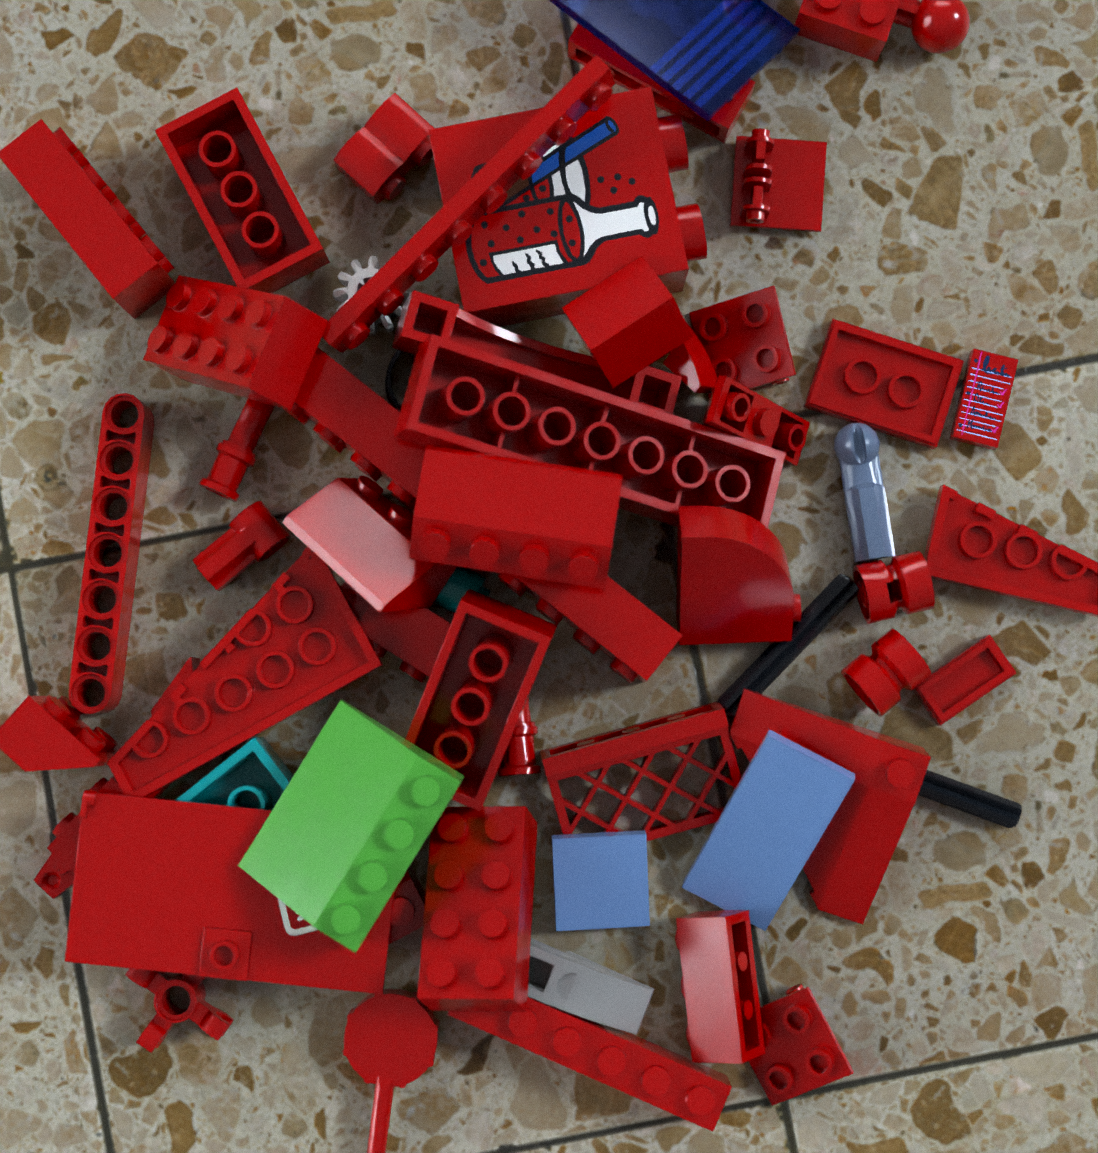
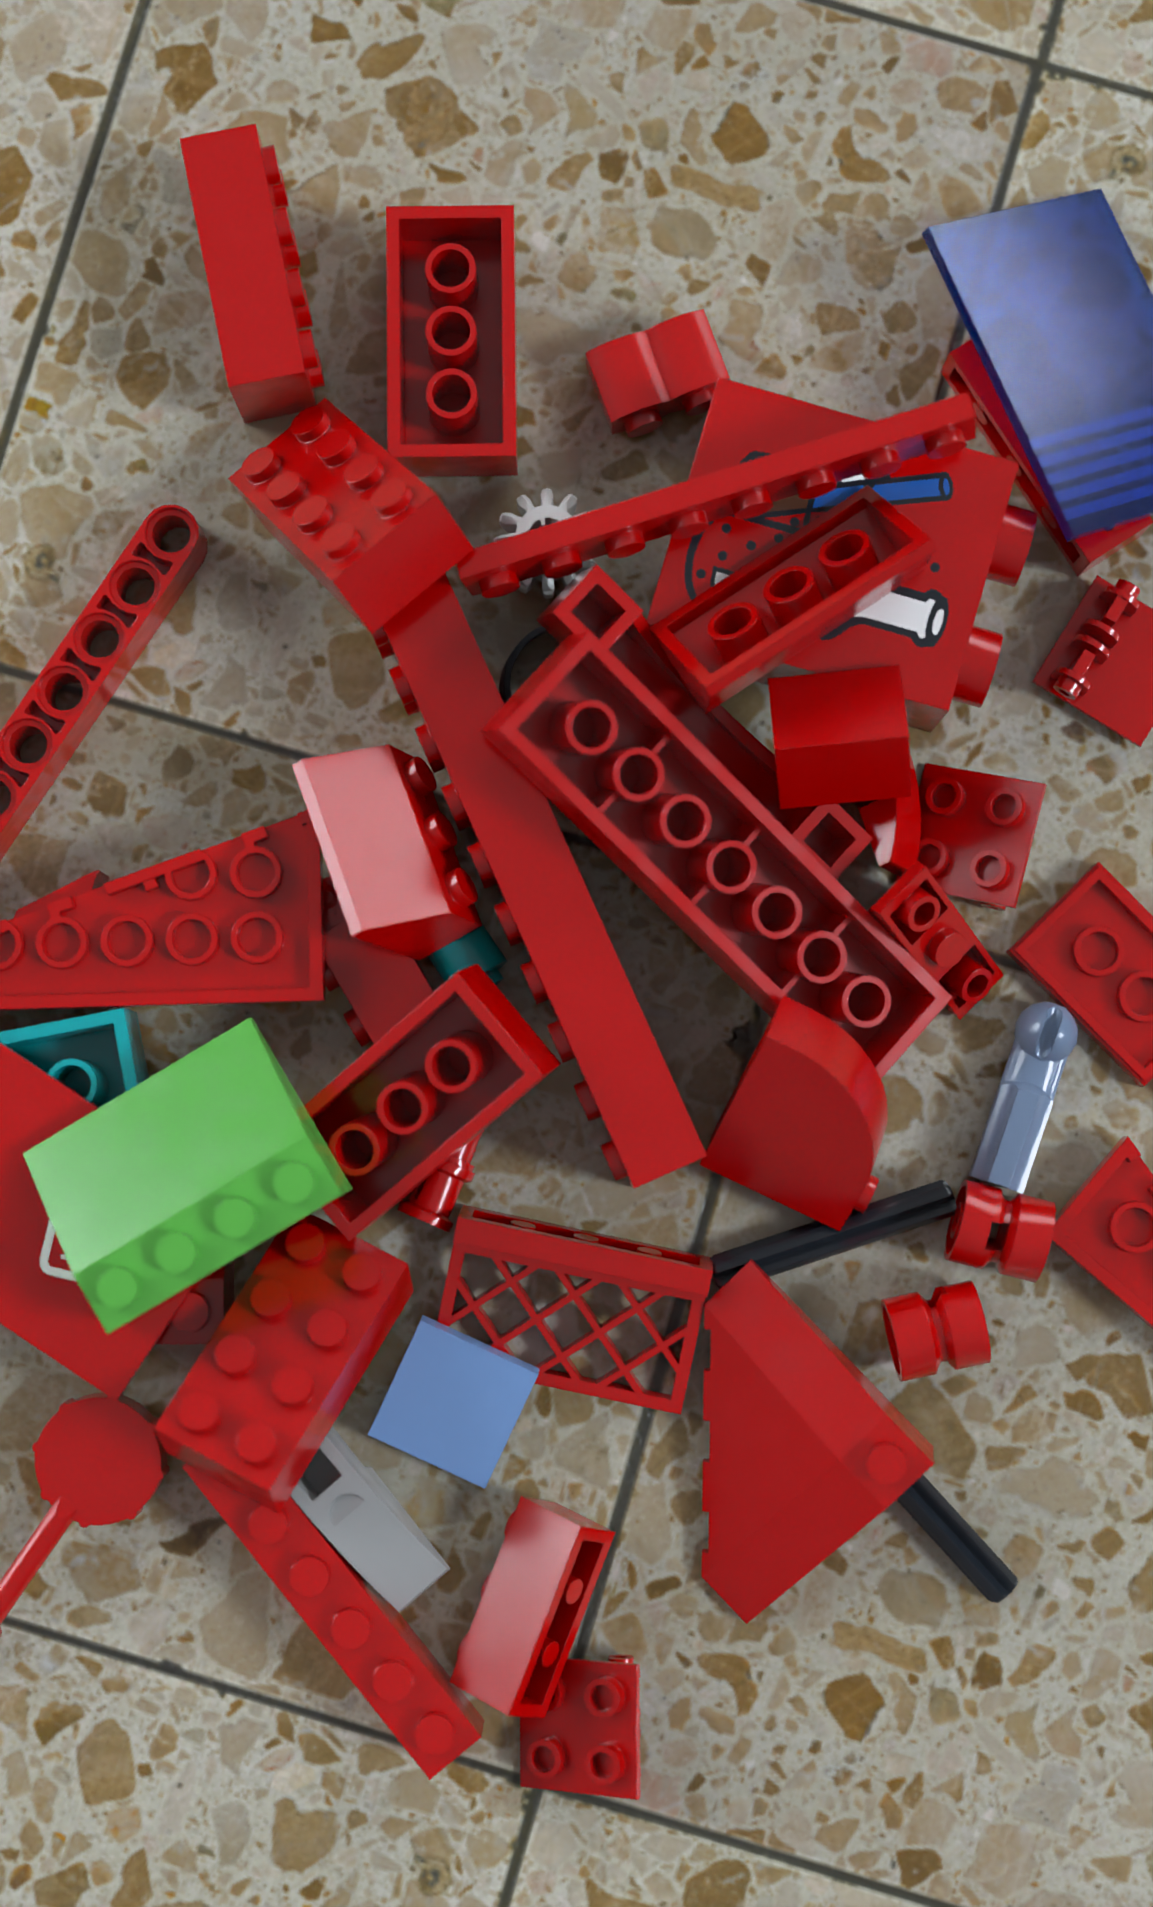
camera: 25 degrees right, 0 degrees up
(237, 452) = (283, 650): red pin -> none
(251, 538) = (247, 763): red piece -> none
(515, 516) = (576, 905): red slope -> none
(550, 246) = (792, 596): none -> red slope
(768, 829) = (690, 1447): medium blue tile -> none
(964, 680) = (1028, 1390): red tile -> none

